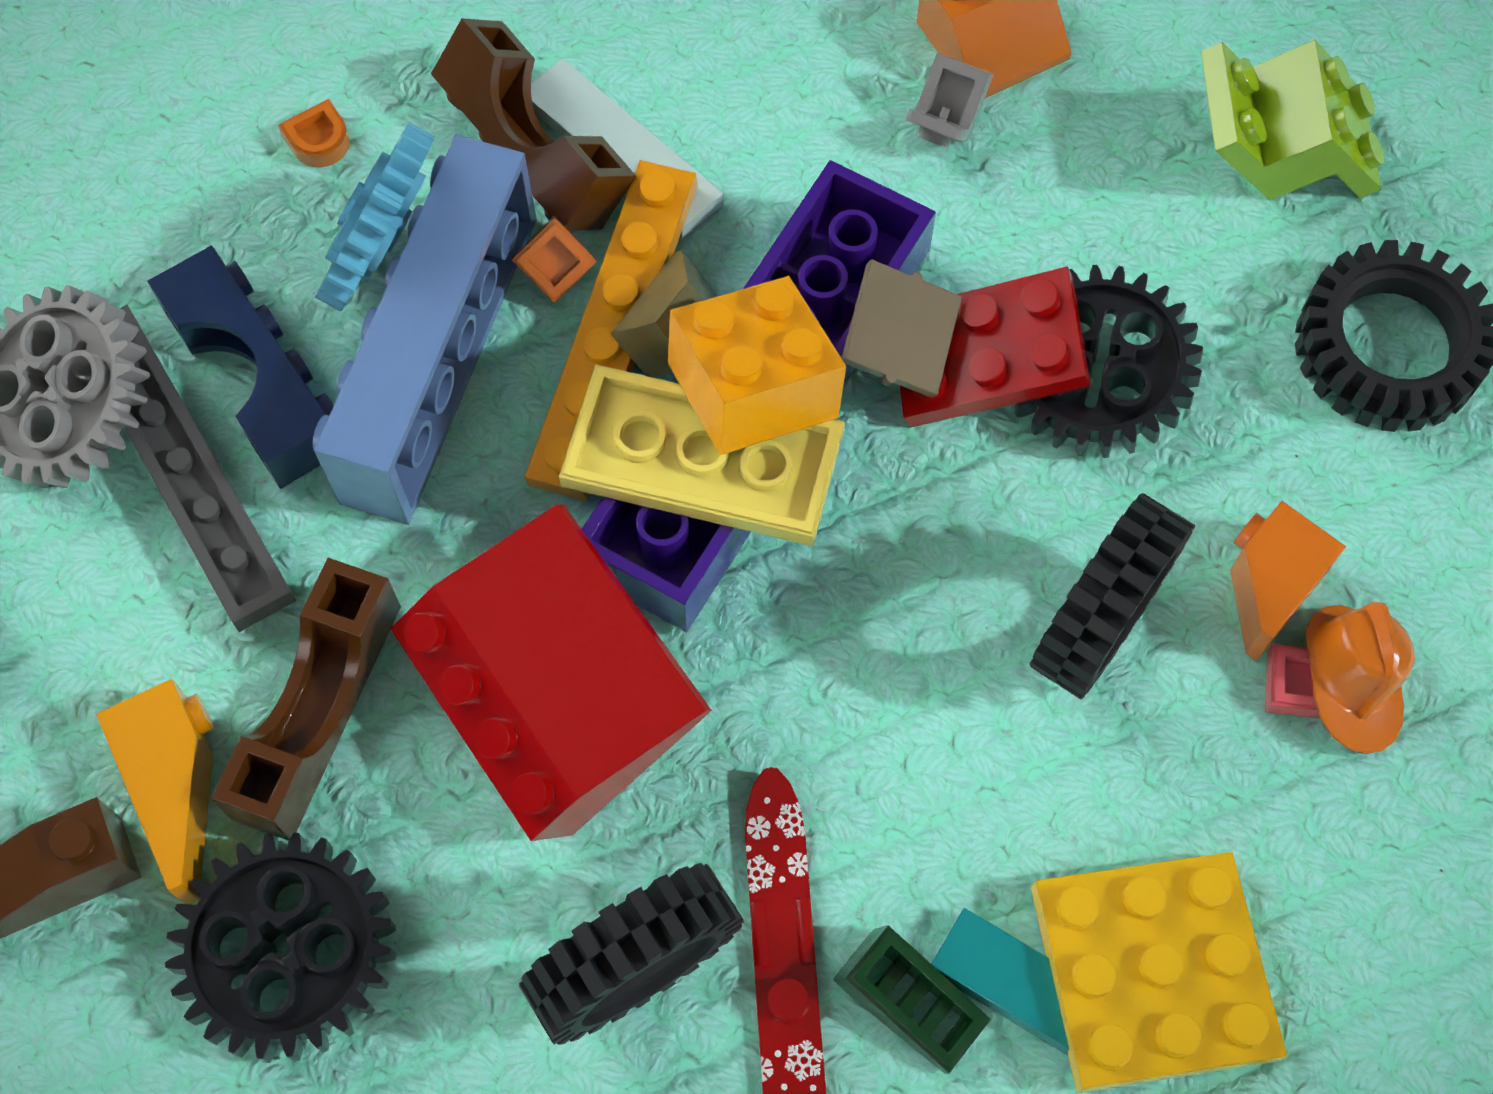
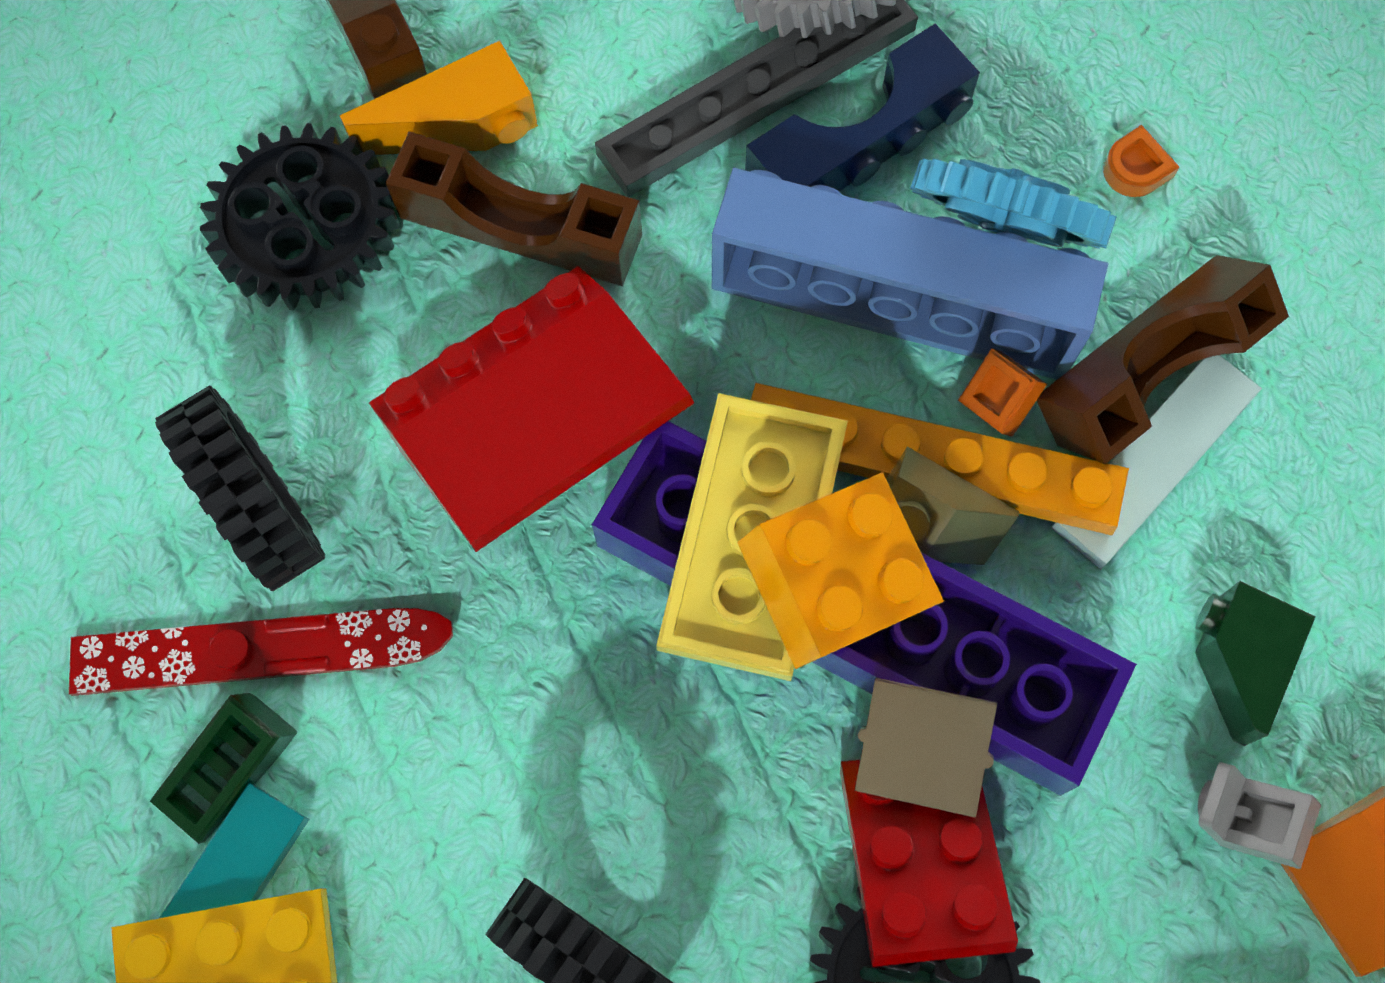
camera: 90 degrees right, 5 degrees up
(813, 92) = (1250, 656): none -> dark green slope

